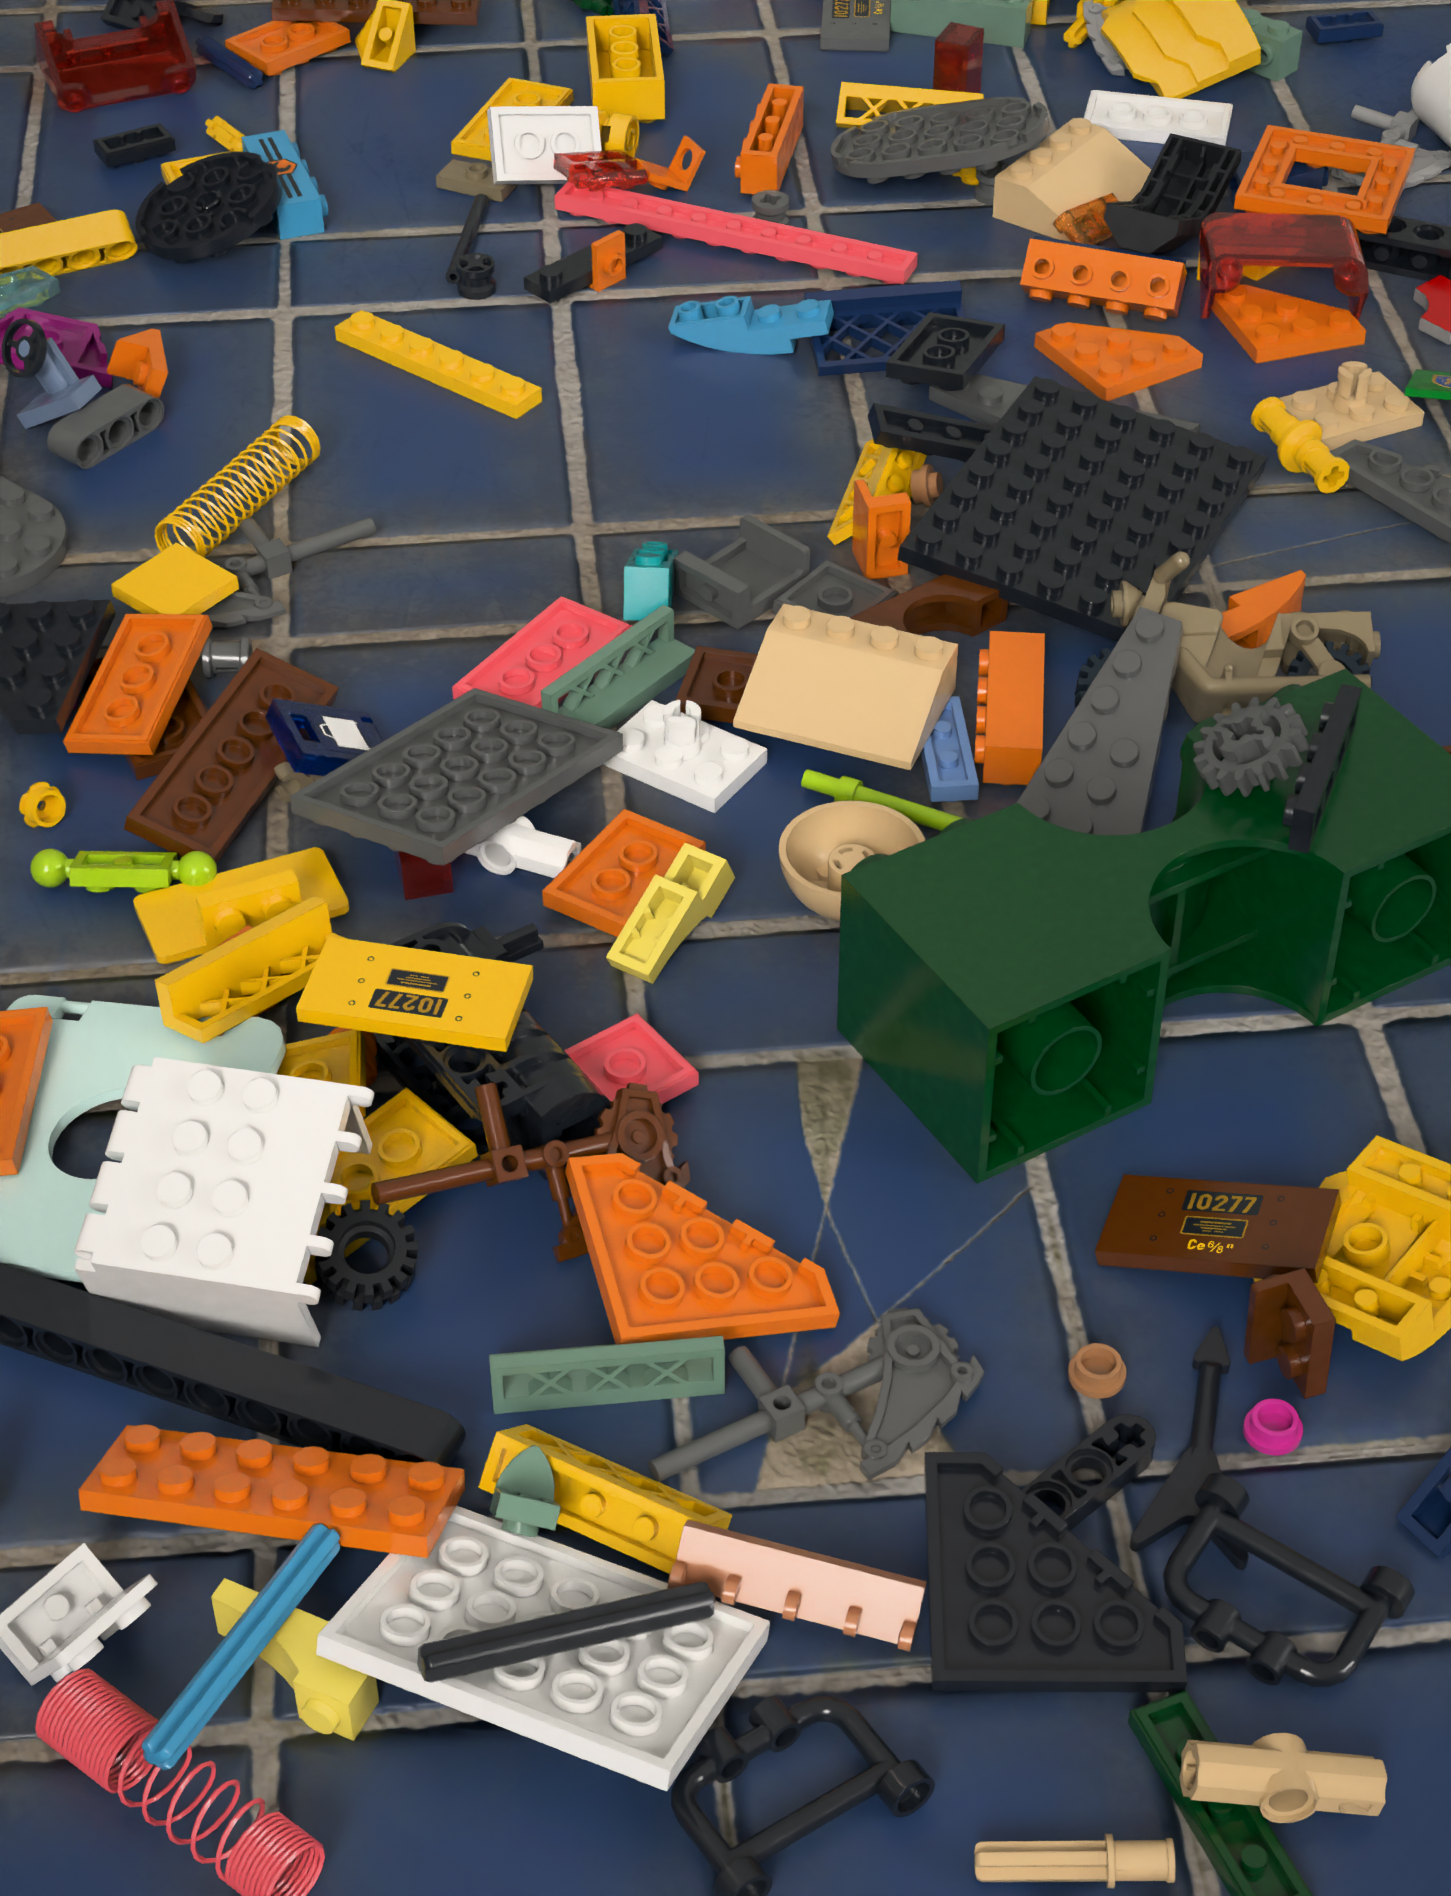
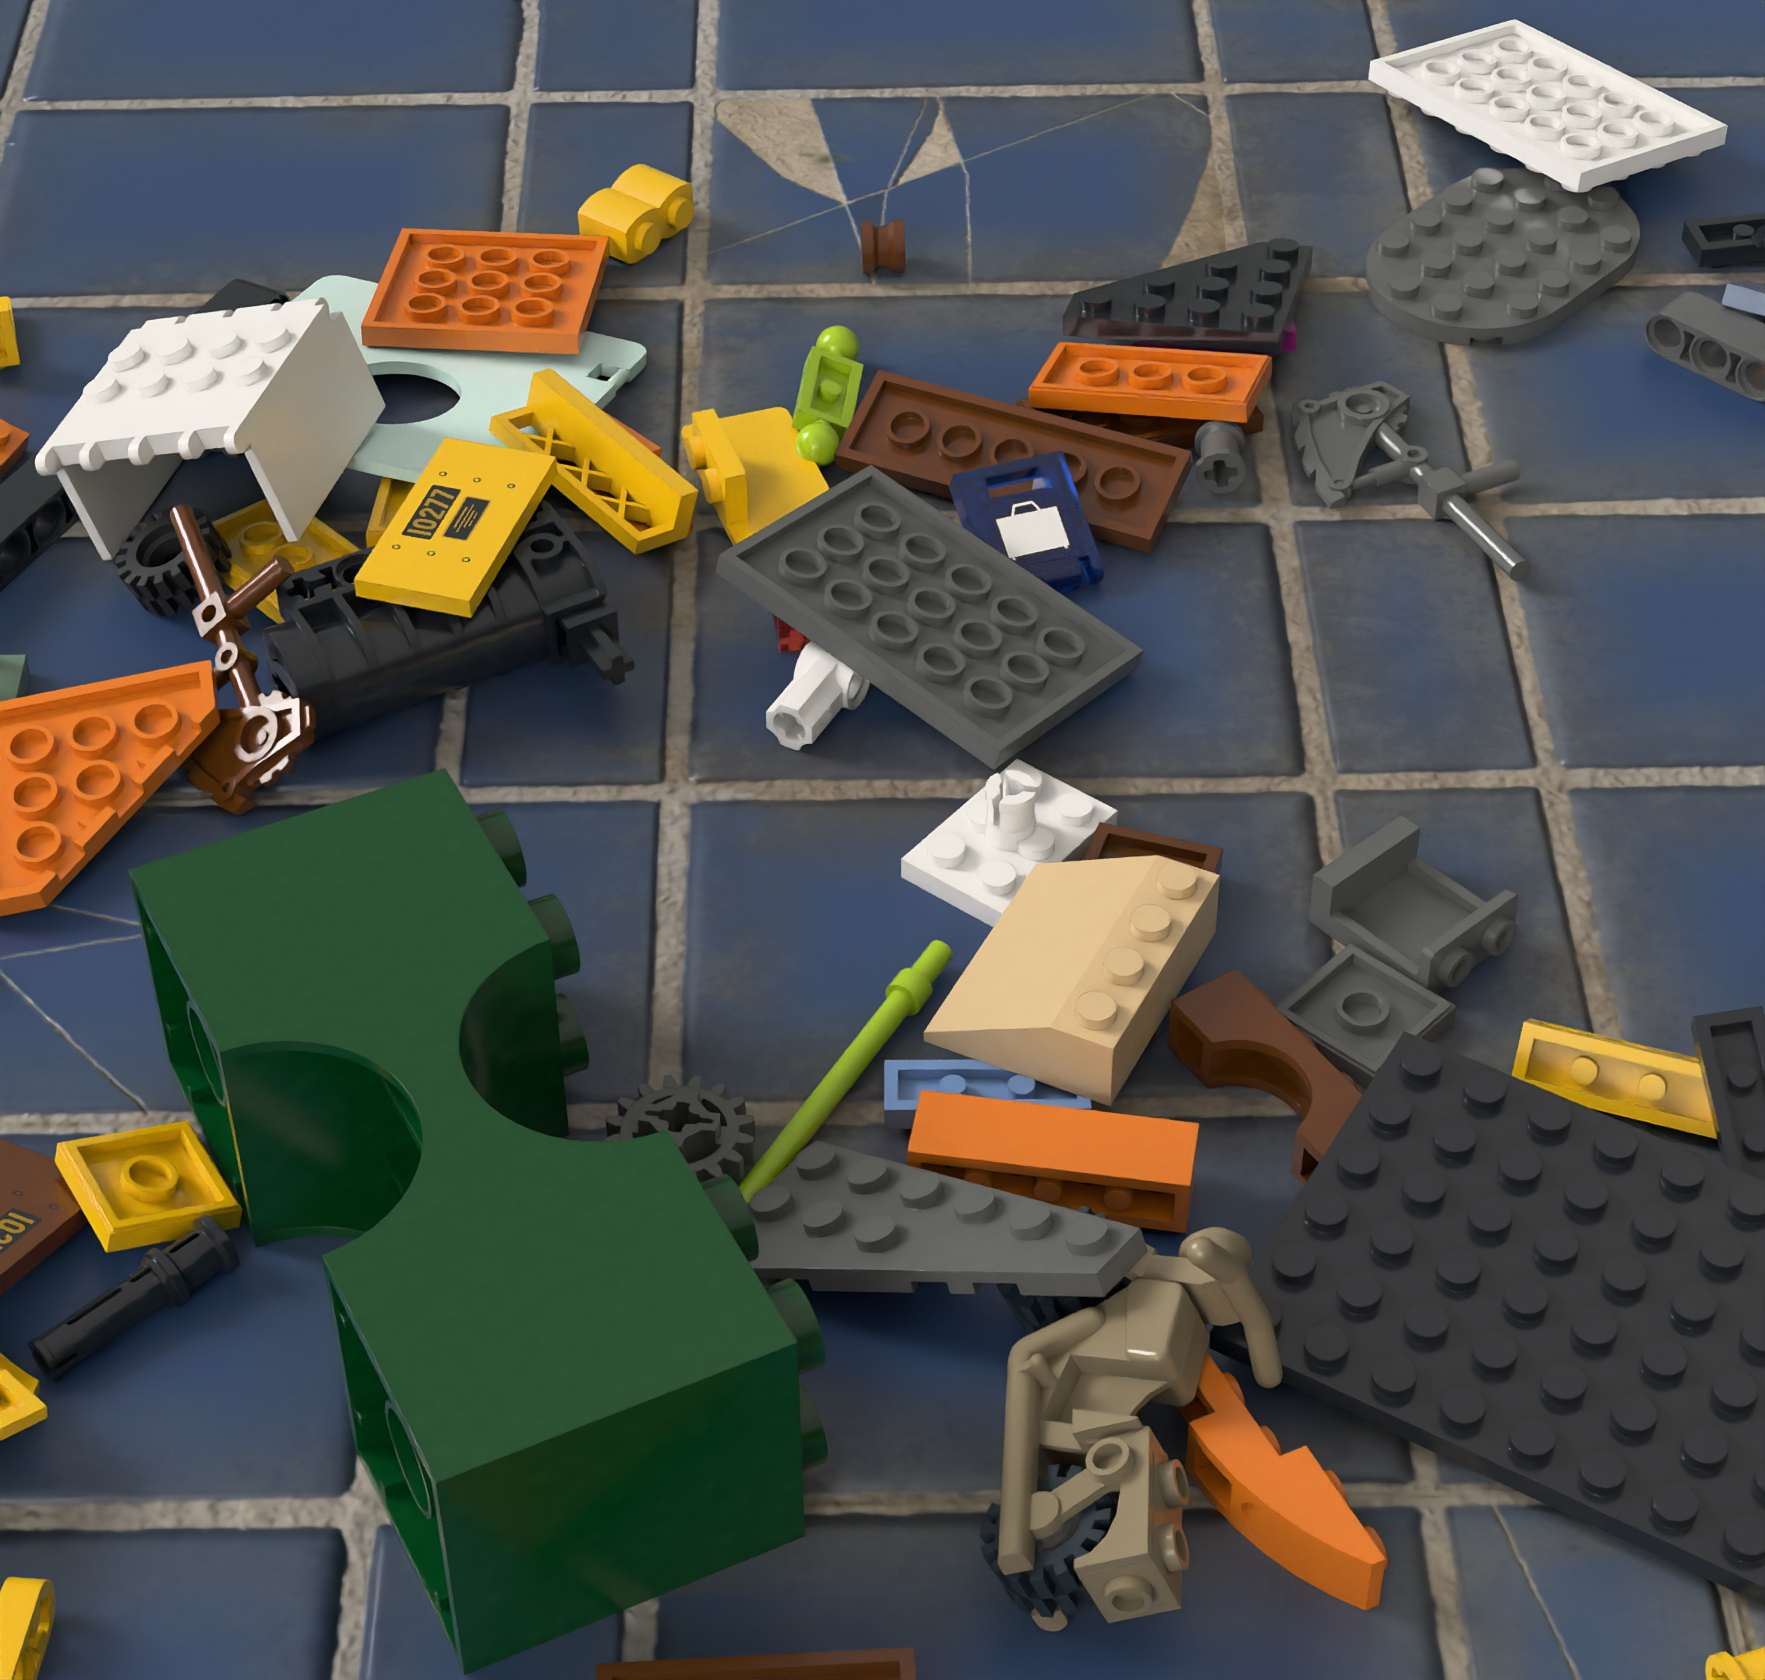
camera: 95 degrees right, 0 degrees up
(52, 806) = (952, 340): yellow plate -> none
(175, 583) = (1346, 401): yellow tile -> none
(278, 445) = (1690, 488): yellow piece -> none
(542, 652) = (1224, 727): coral tile -> none
(615, 870) = (764, 774): orange plate -> none
(625, 687) = (1157, 788): sand green fence -> none
(636, 1055) = (415, 746): coral plate -> none
(648, 580) = (1354, 796): teal slope -> none
(670, 912) = (679, 803): light yellow slope -> none
(834, 839) = (703, 941): tan piece -> none
(878, 531) = (1485, 1012): orange panel -> none
(926, 485) = (1665, 1120): medium nougat plate -> none
(1128, 1150) = (146, 1184): none -> yellow tile
(1213, 1129) = (160, 1281): none -> black pin
(1250, 746) = (559, 1148): dark grey gear -> none
(1317, 780) = (513, 1237): black plate -> none

